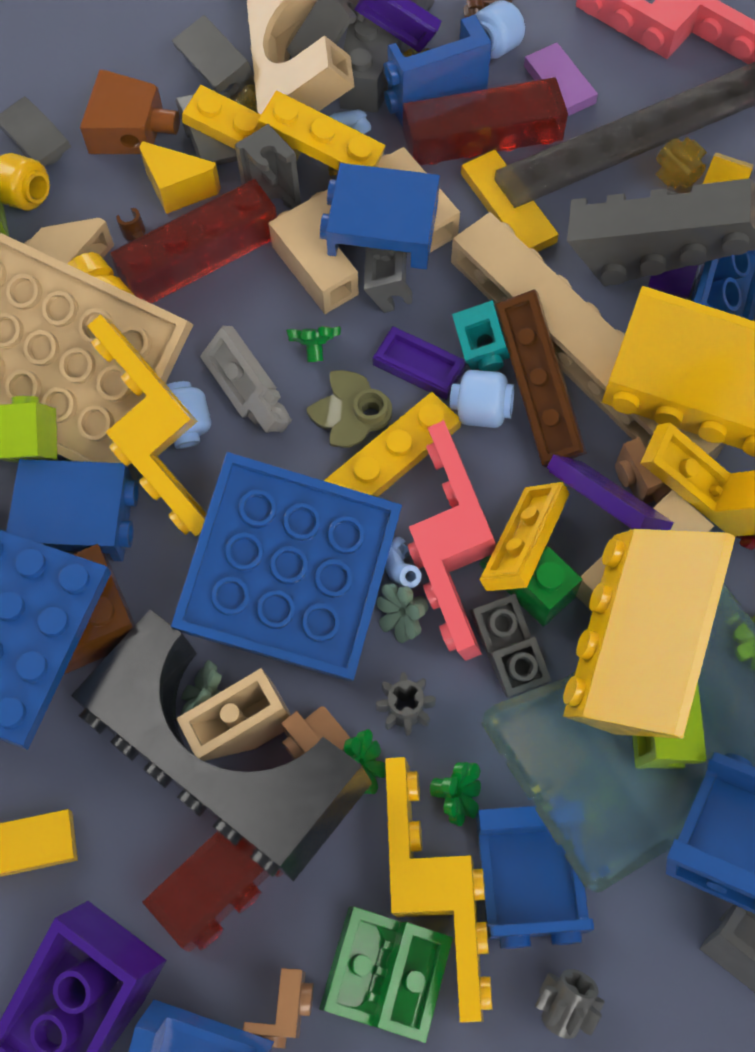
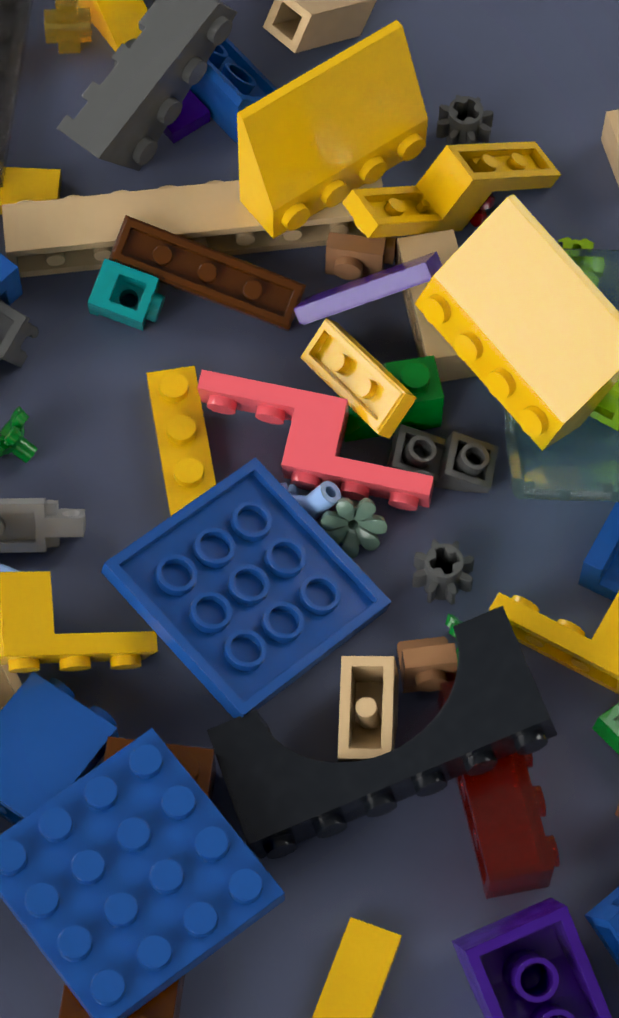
camera: 60 degrees left, 5 degrees down
(205, 687) = (313, 733): sand green plant -> none
(346, 407) = (104, 458): olive plate -> none
(419, 362) = (103, 367): dark purple tile -> none
(459, 792) = (549, 579): green plant -> none
(482, 398) = (190, 333): light blue head -> none

